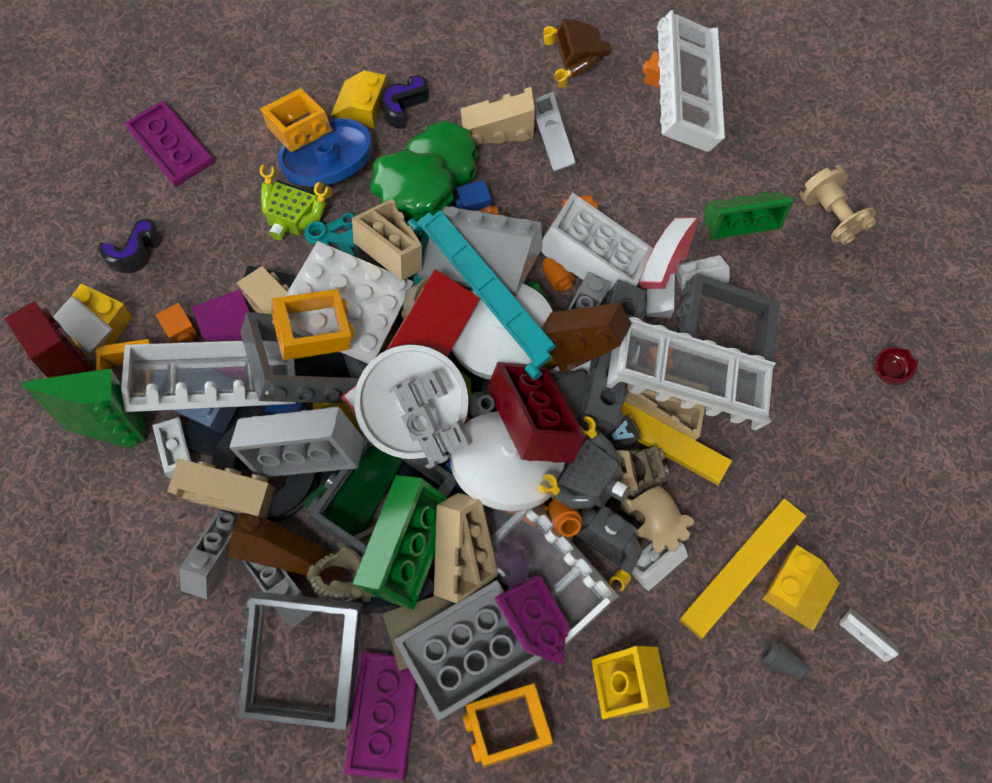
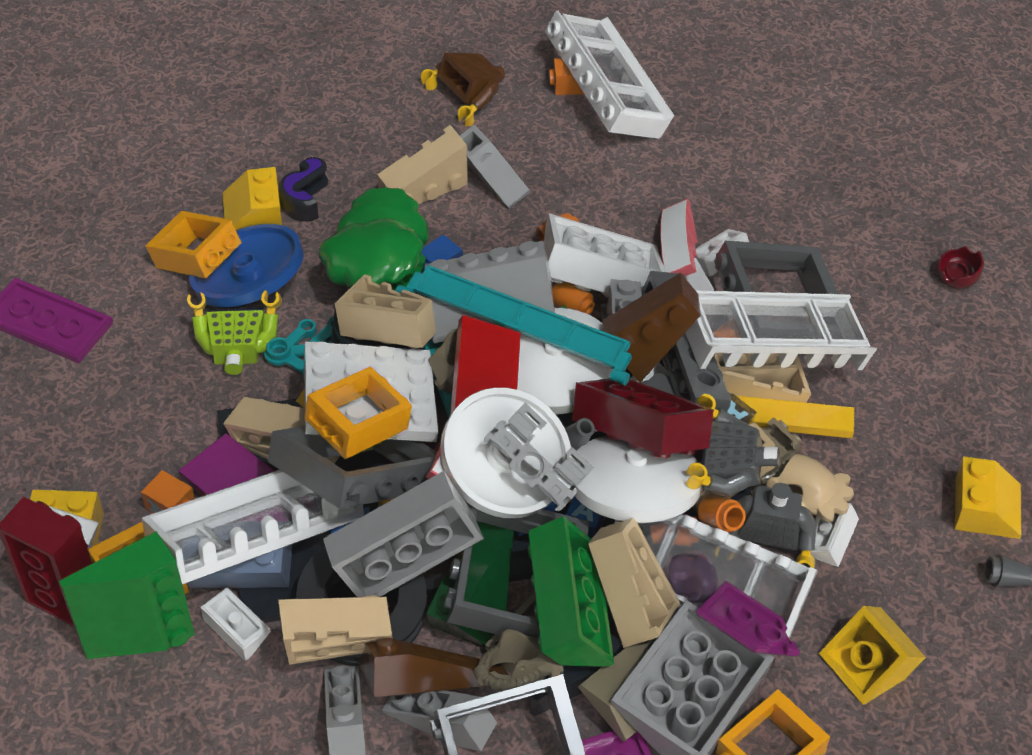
camera: 25 degrees left, 15 degrees down
(135, 250) = (73, 444): black animal -> none
(742, 569) = (919, 508): yellow tile -> none
(747, 214) = (736, 180): green slope -> none
(826, 189) = (805, 131): tan piece -> none

